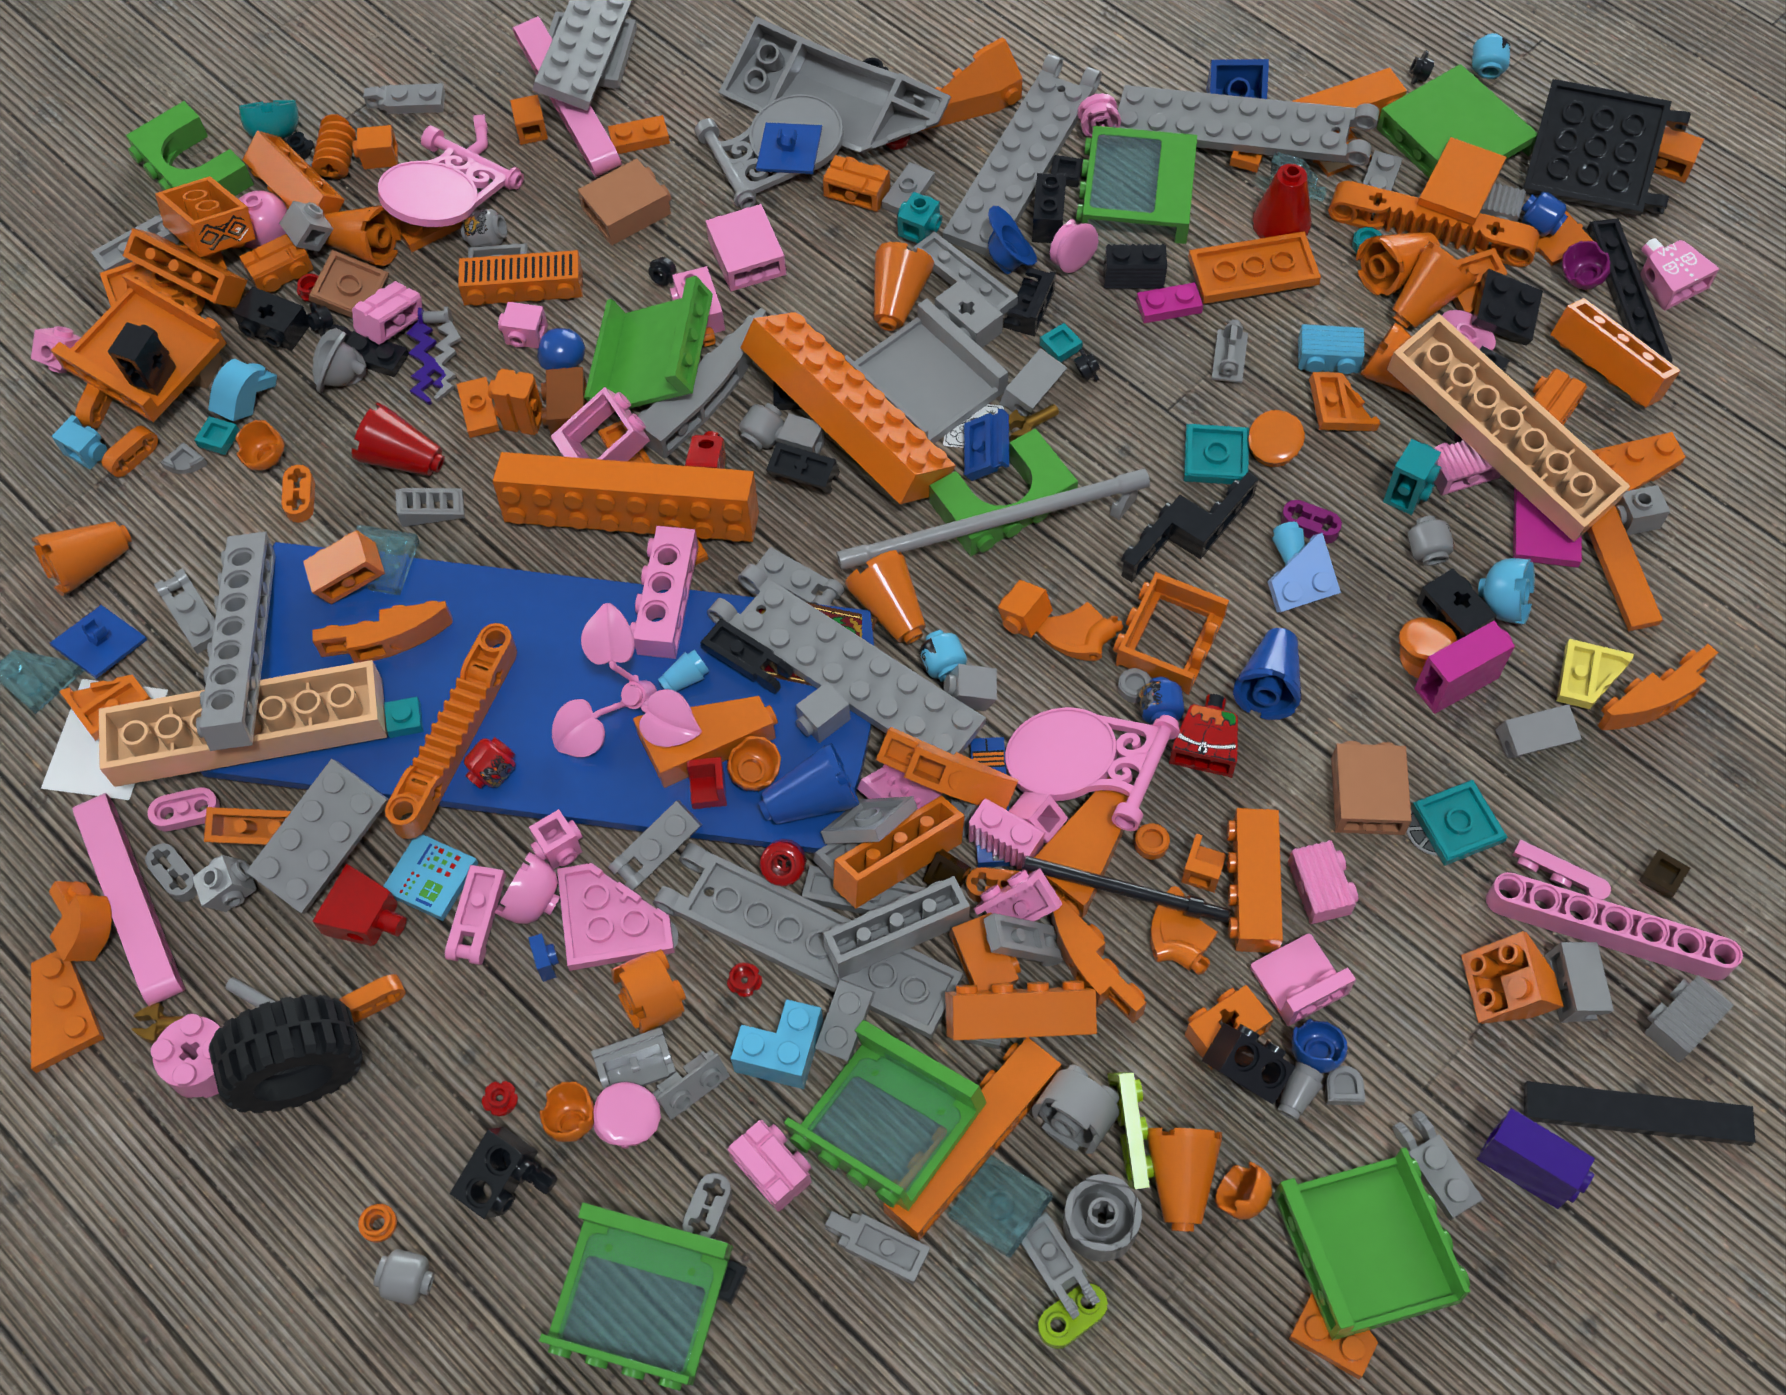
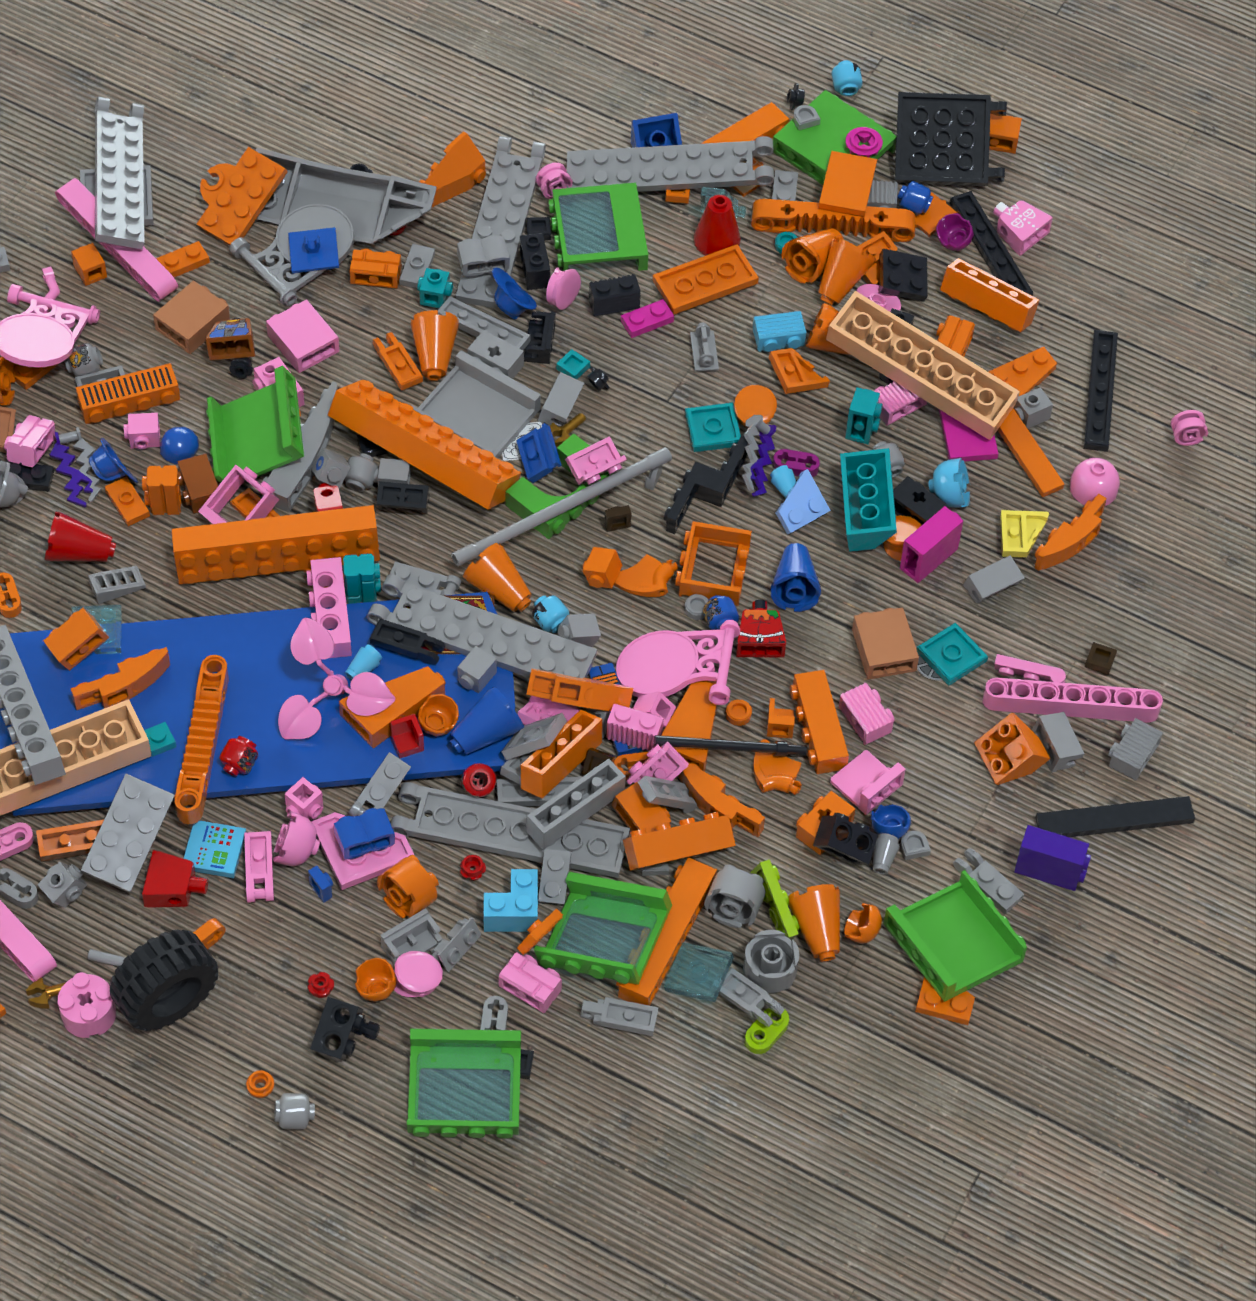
camera: 20 degrees left, 5 degrees down
(469, 355) = (107, 463): none -> blue piece
(614, 902) = (364, 833): none -> blue brick
(658, 235) = (231, 339): none -> dark orange torso
(716, 560) = (361, 578): none -> teal brick
(722, 68) = (238, 195): none -> orange plate
(725, 414) = (330, 468): none -> light grey brick
(799, 1095) = (539, 930): none -> orange plate
(850, 300) = (398, 362): none -> orange hinge
(982, 188) = (482, 255): none -> light grey brick
(1049, 469) = (595, 460): none -> bright pink bracket
(1063, 547) = (618, 518): none -> dark brown plate
(1281, 473) = (765, 433): none -> piece
(1393, 588) = (868, 498): none -> teal slope
(1428, 92) = (805, 117): none -> light grey tile
(1495, 125) = (864, 135): none -> dark pink gear
(1705, 621) = (1093, 478): none -> bright pink cylinder
(1736, 505) = (1100, 390): none -> black tile

